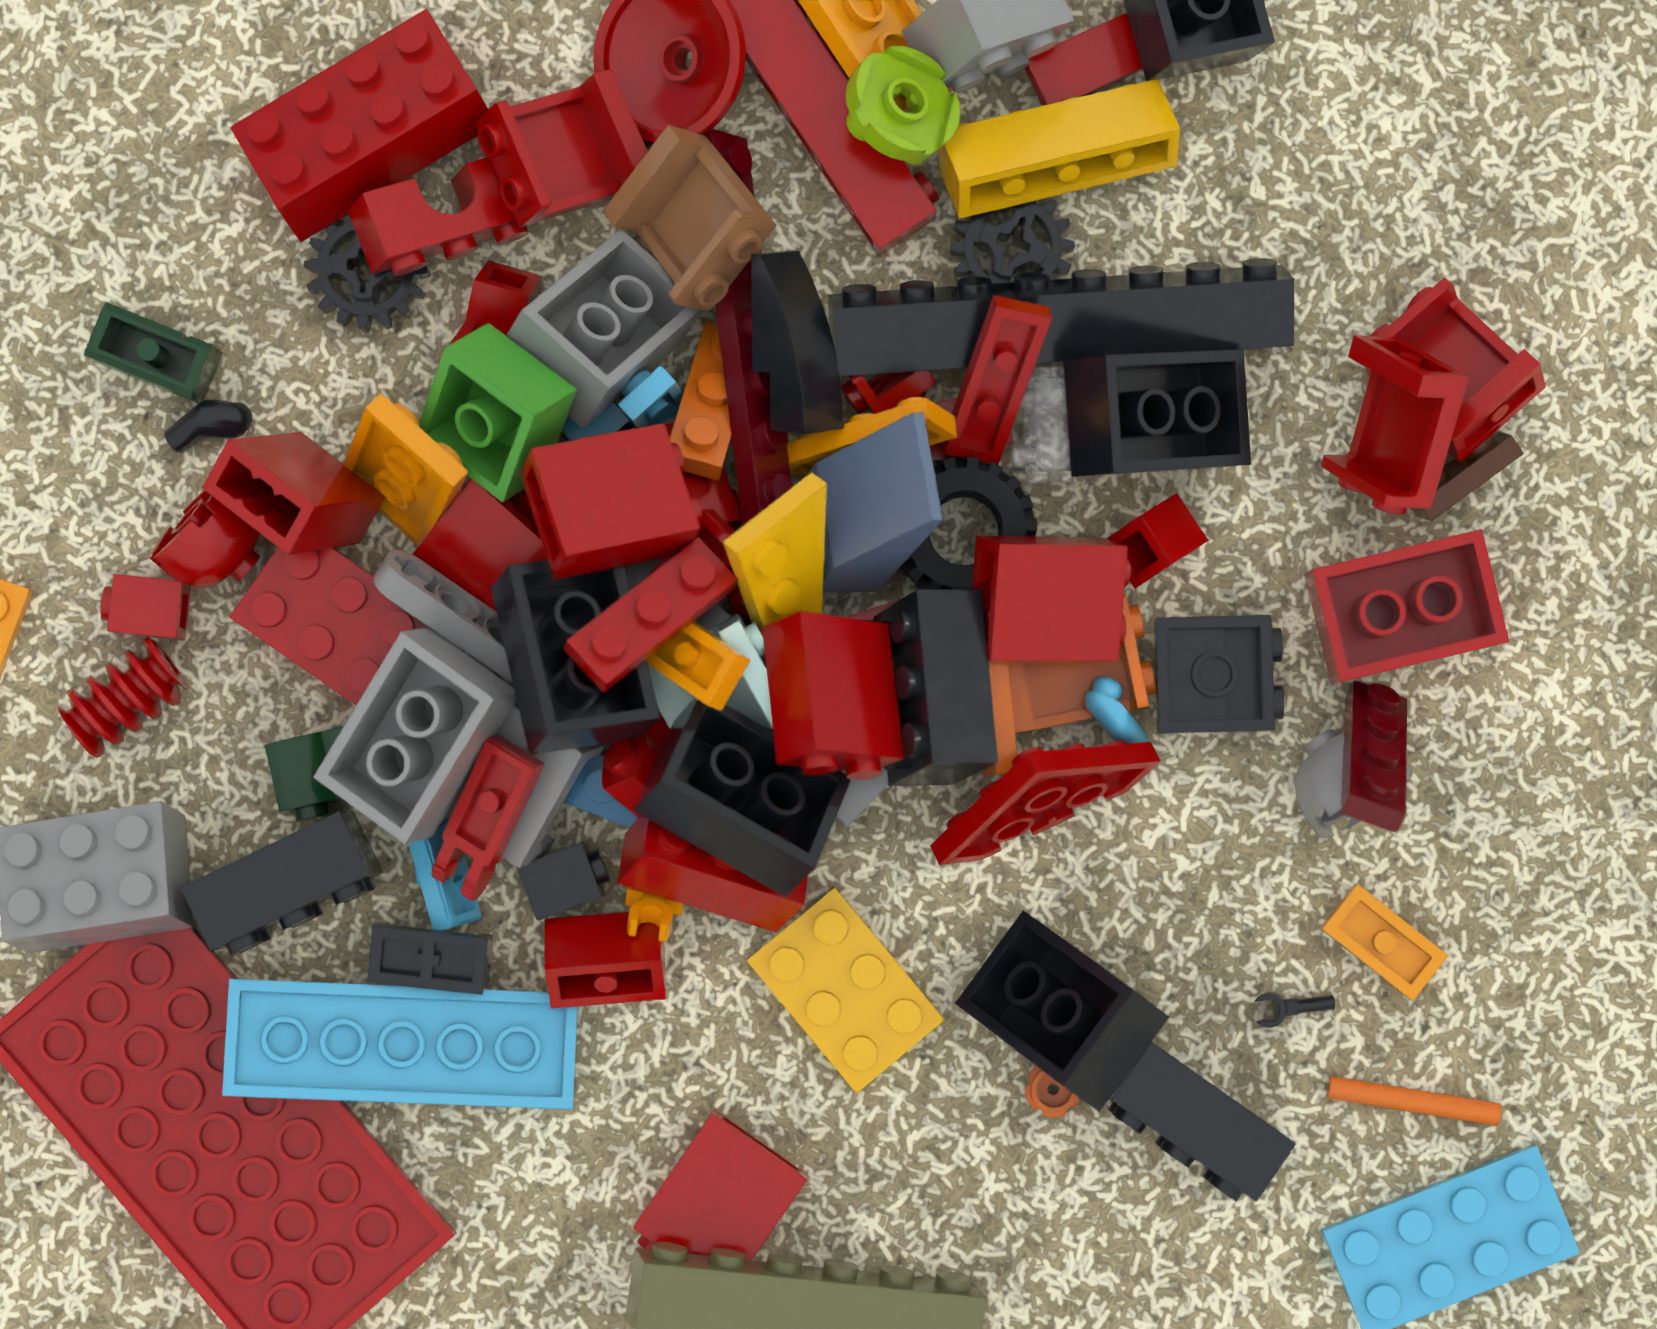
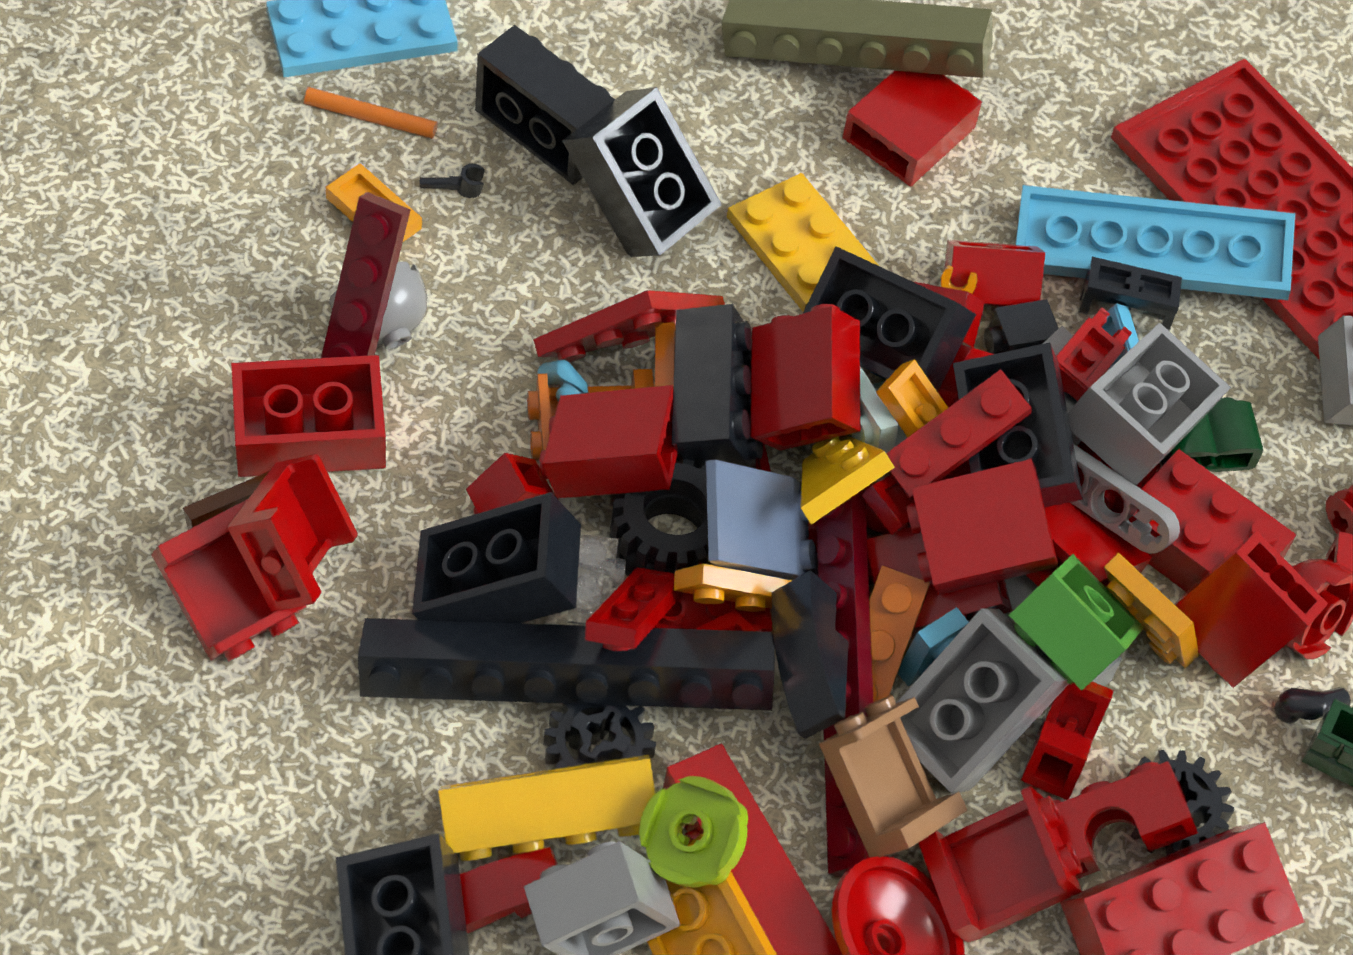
camera: 175 degrees right, 30 degrees down
(283, 883) = (1262, 344): black brick -> none
(1217, 674) = (474, 394): black plate -> none

